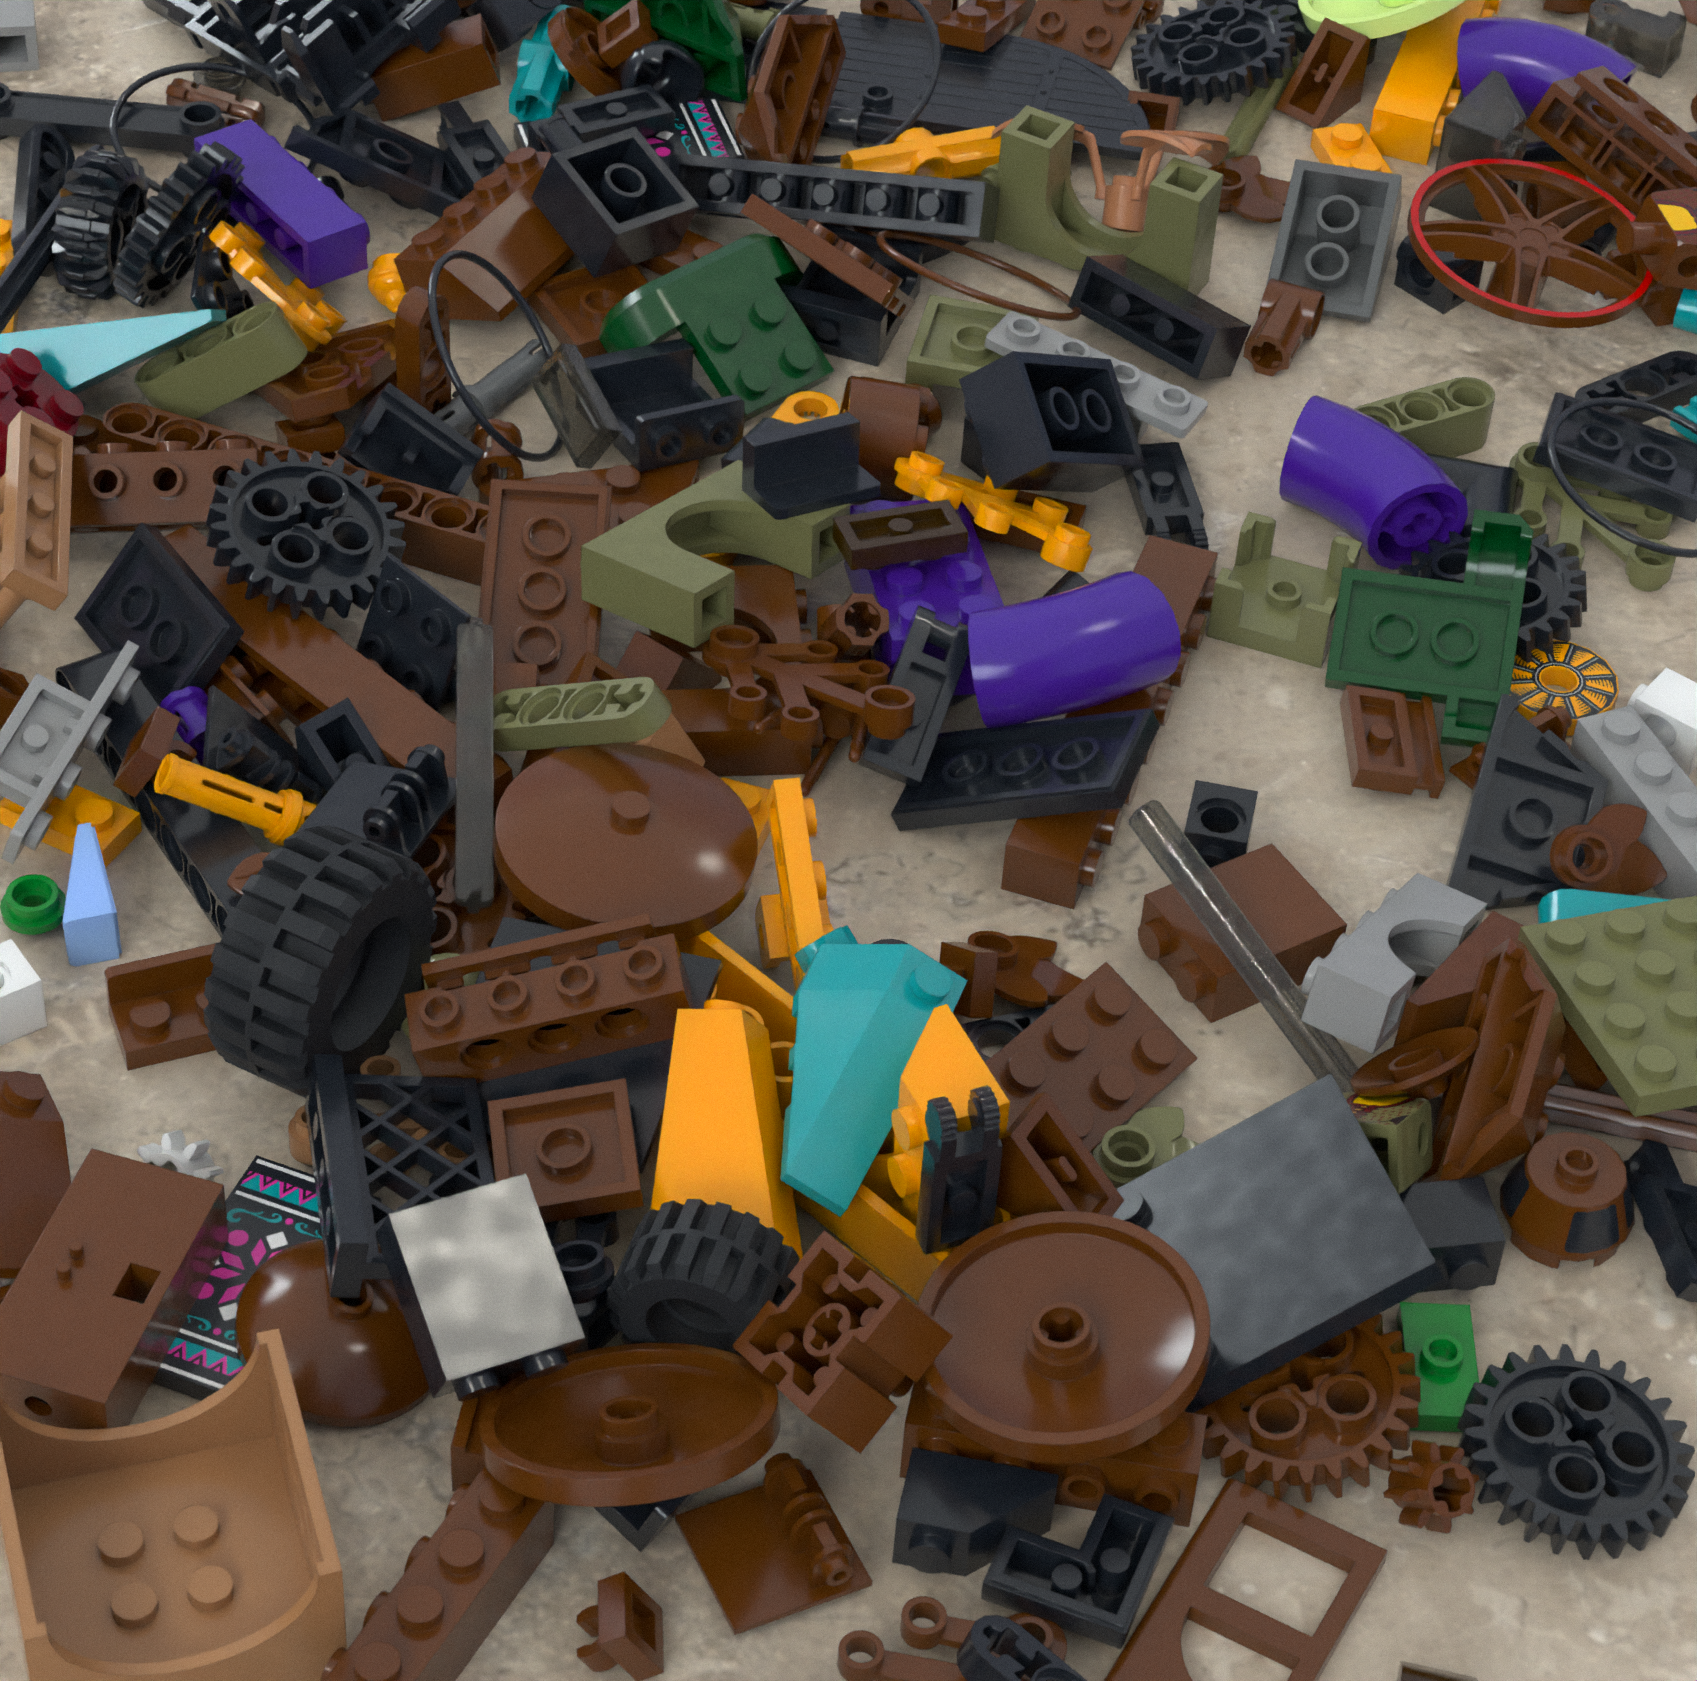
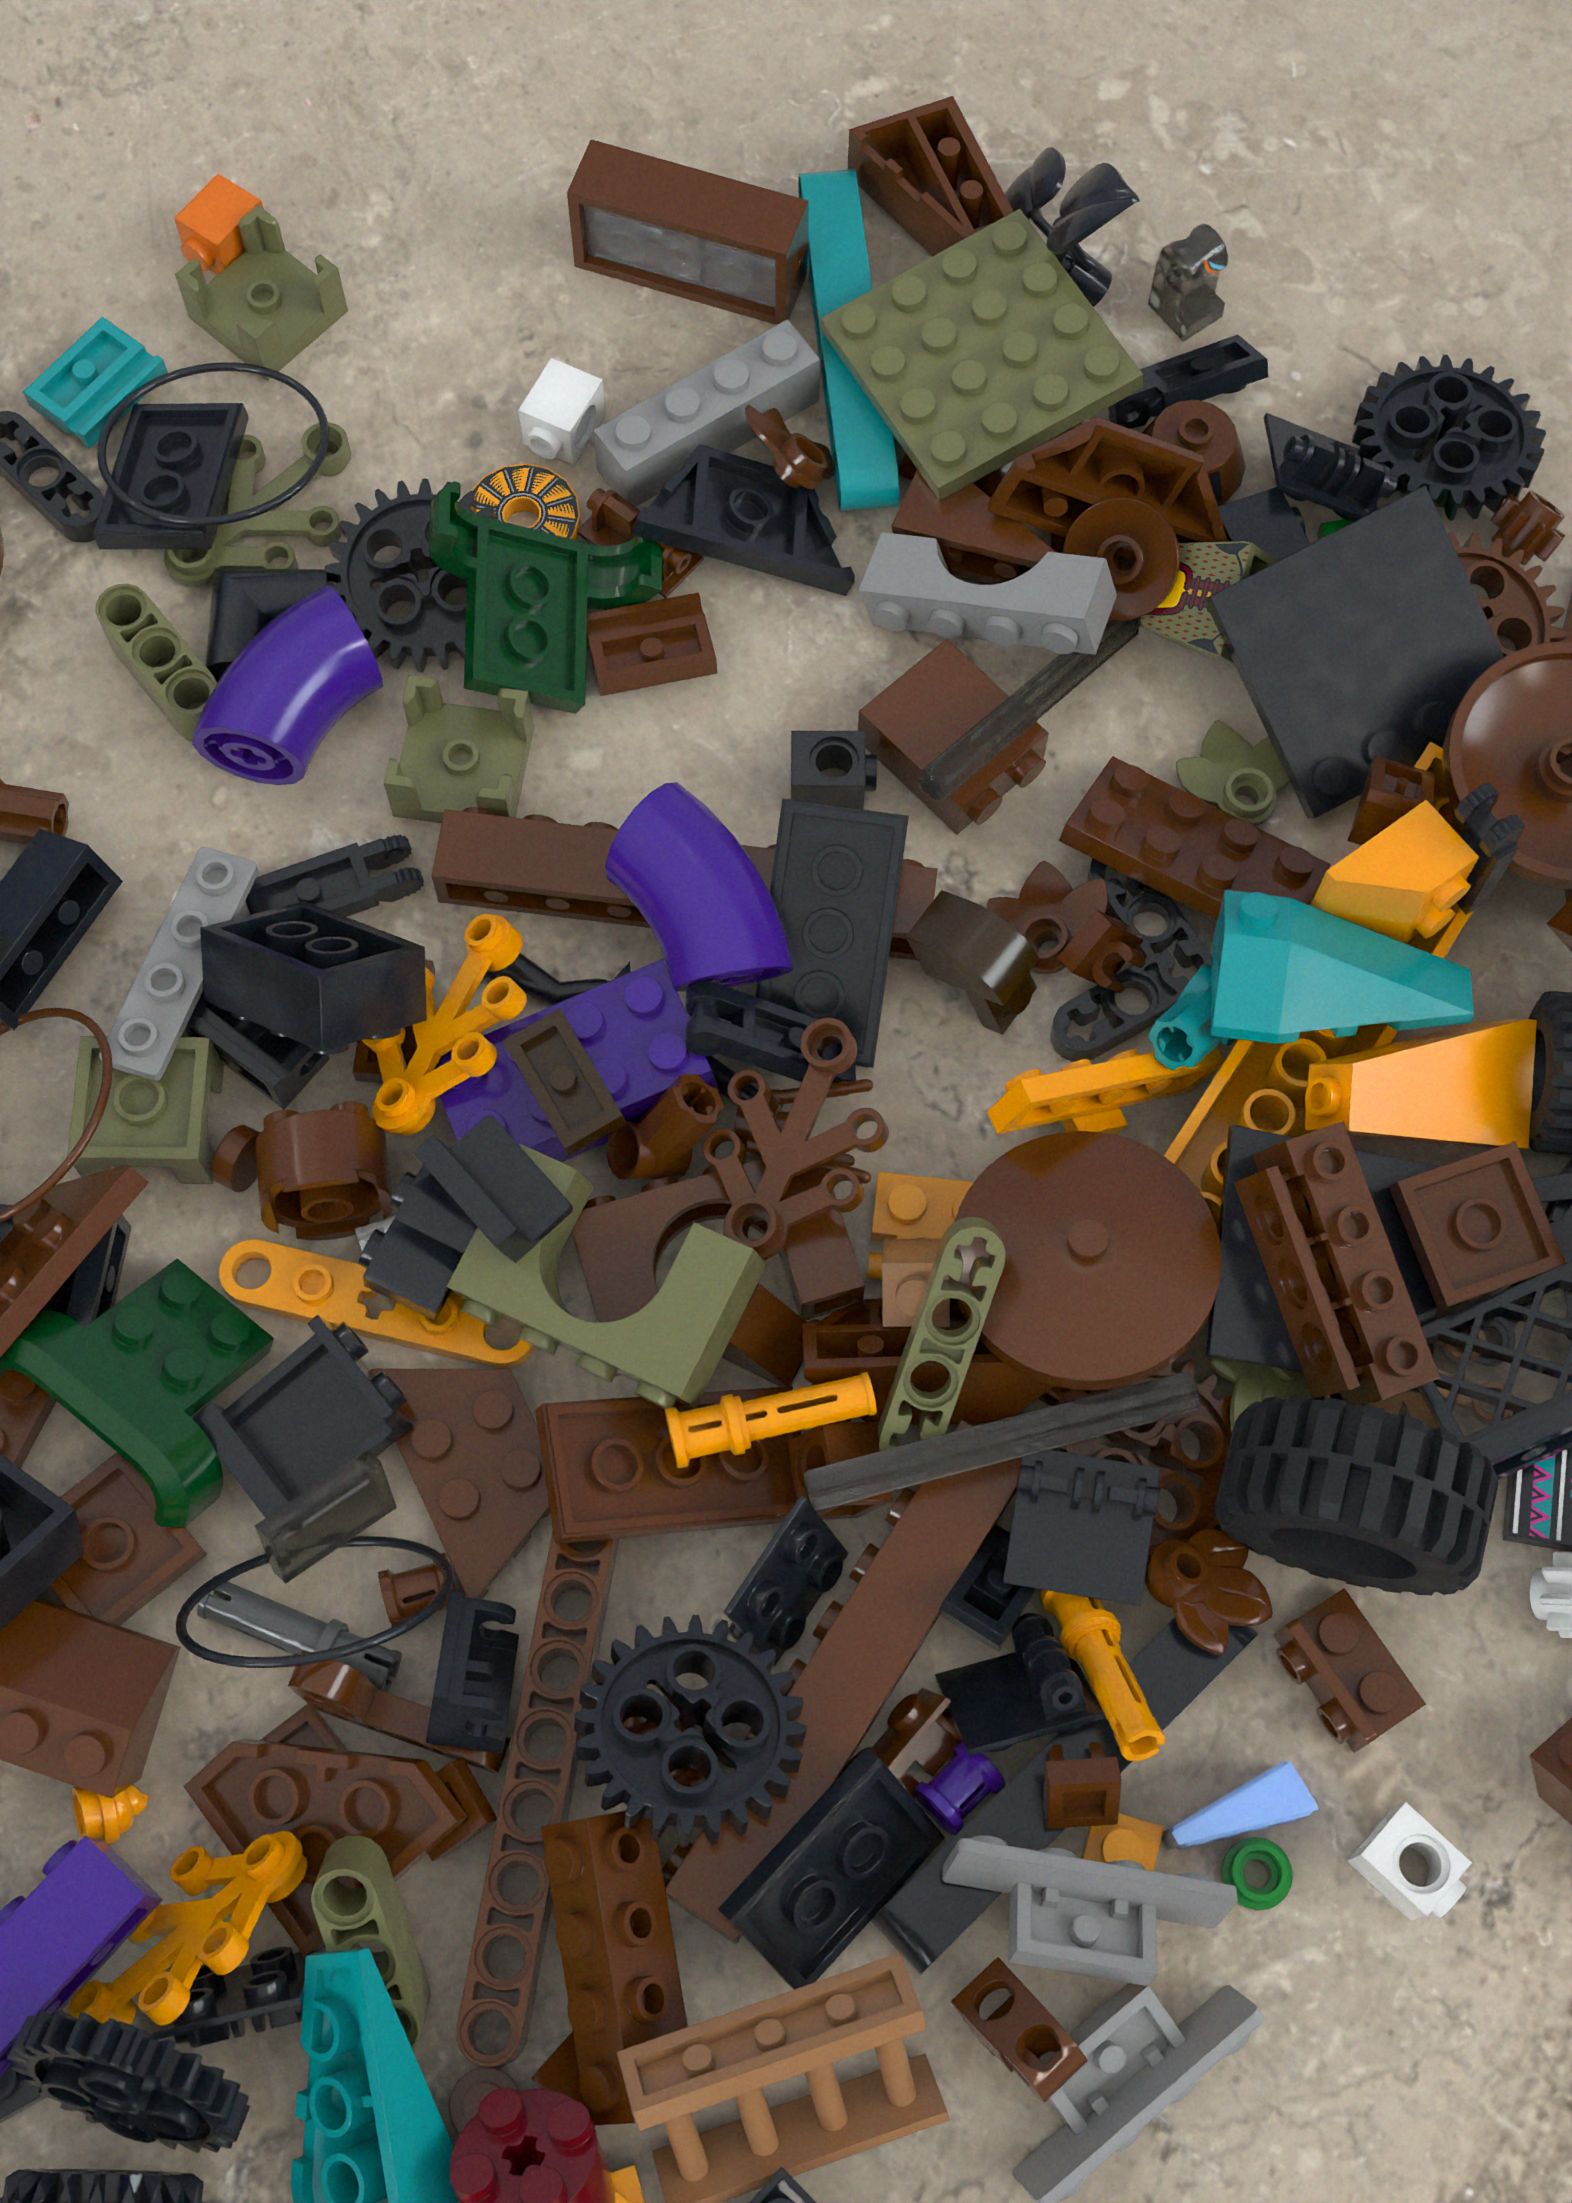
camera: 100 degrees left, 25 degrees up
(547, 665) = (737, 1423): none -> light orange pin
(965, 863) = (978, 954): none -> dark brown brick
(1529, 1291) = (1325, 470): none -> black hinge

